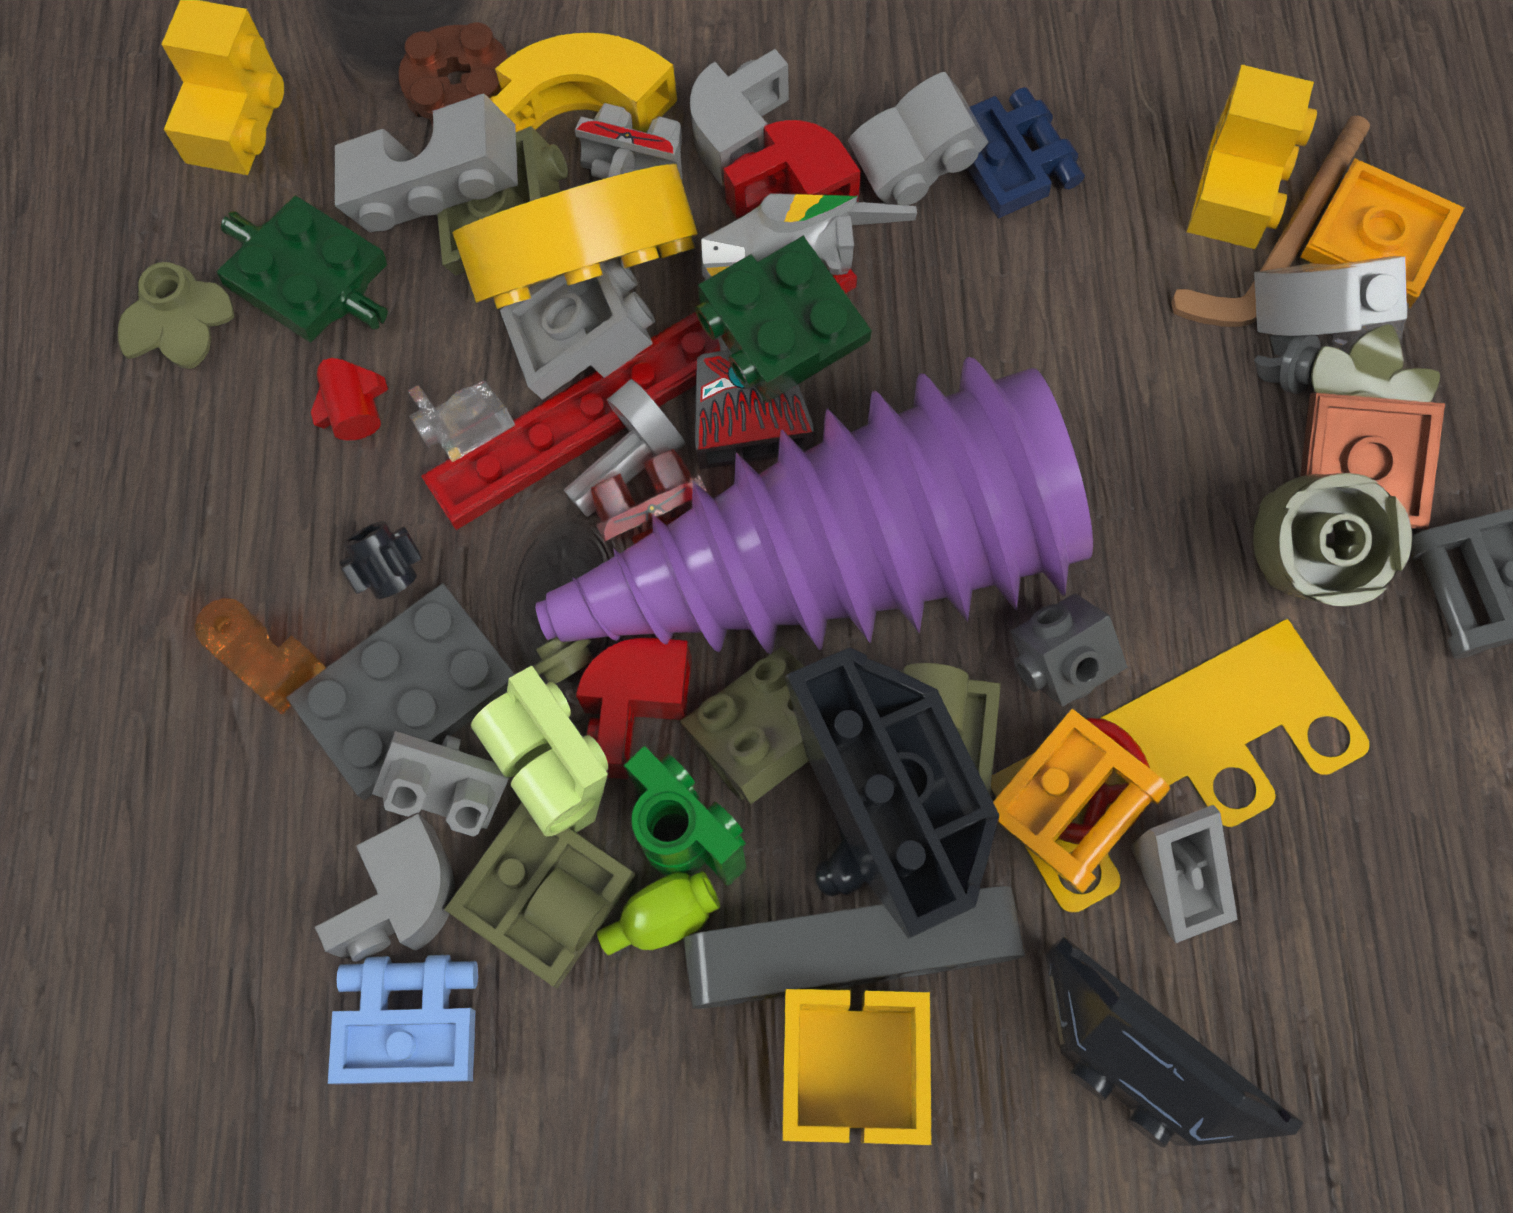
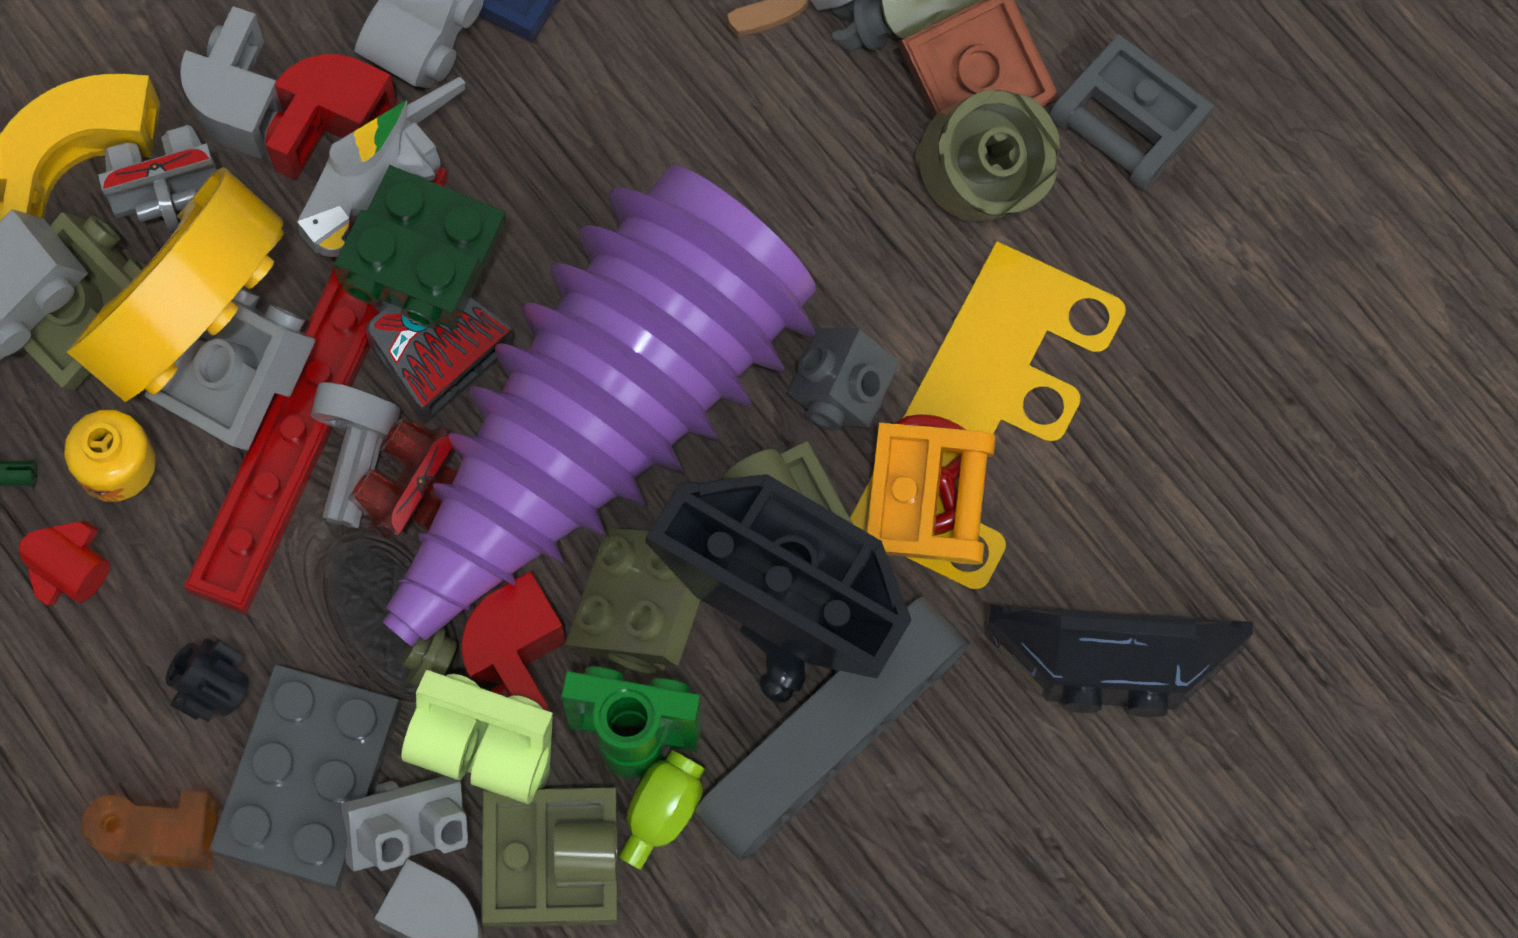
camera: 40 degrees left, 0 degrees up
(436, 337) = (109, 455): none -> yellow head
(463, 421) = (186, 513): clear bracket -> none
(857, 1067) = (902, 813): yellow piece -> none
(1188, 873) = (1050, 494): light grey slope -> none

